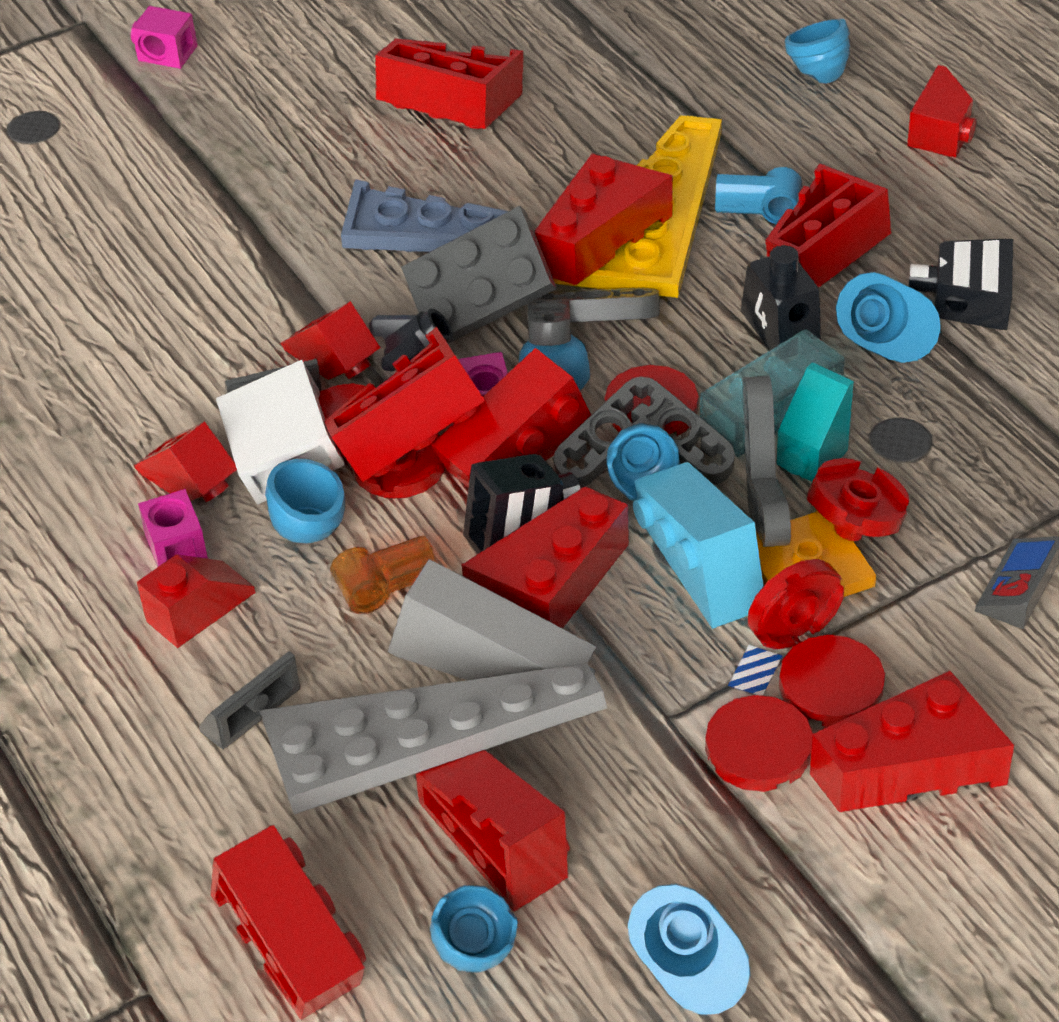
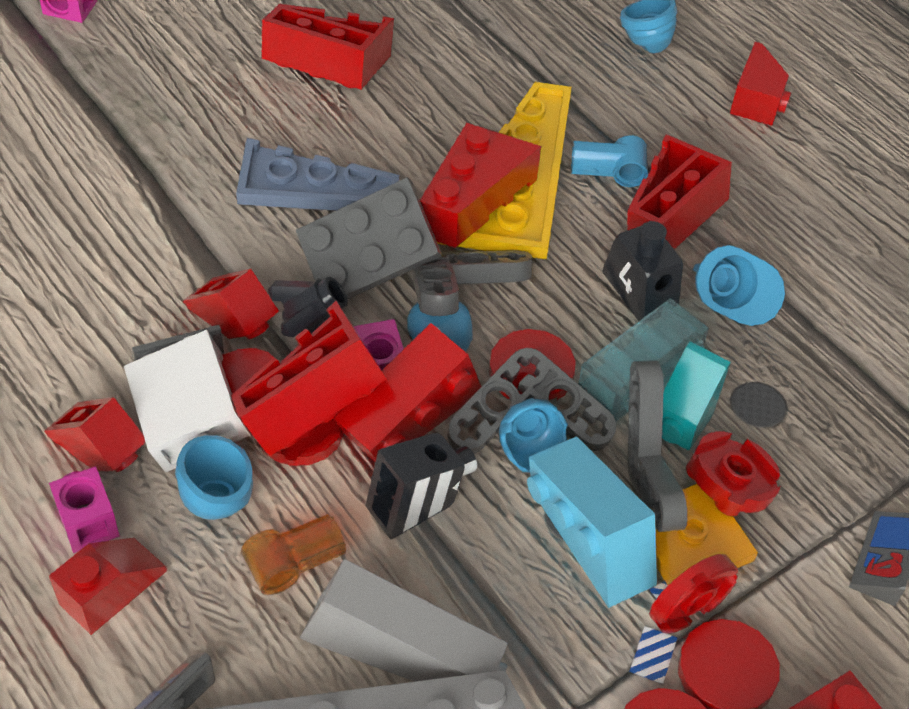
camera: 10 degrees left, 5 degrees up
(556, 556) = (454, 542): red wedge -> none
(970, 281) = (806, 248): black torso -> none

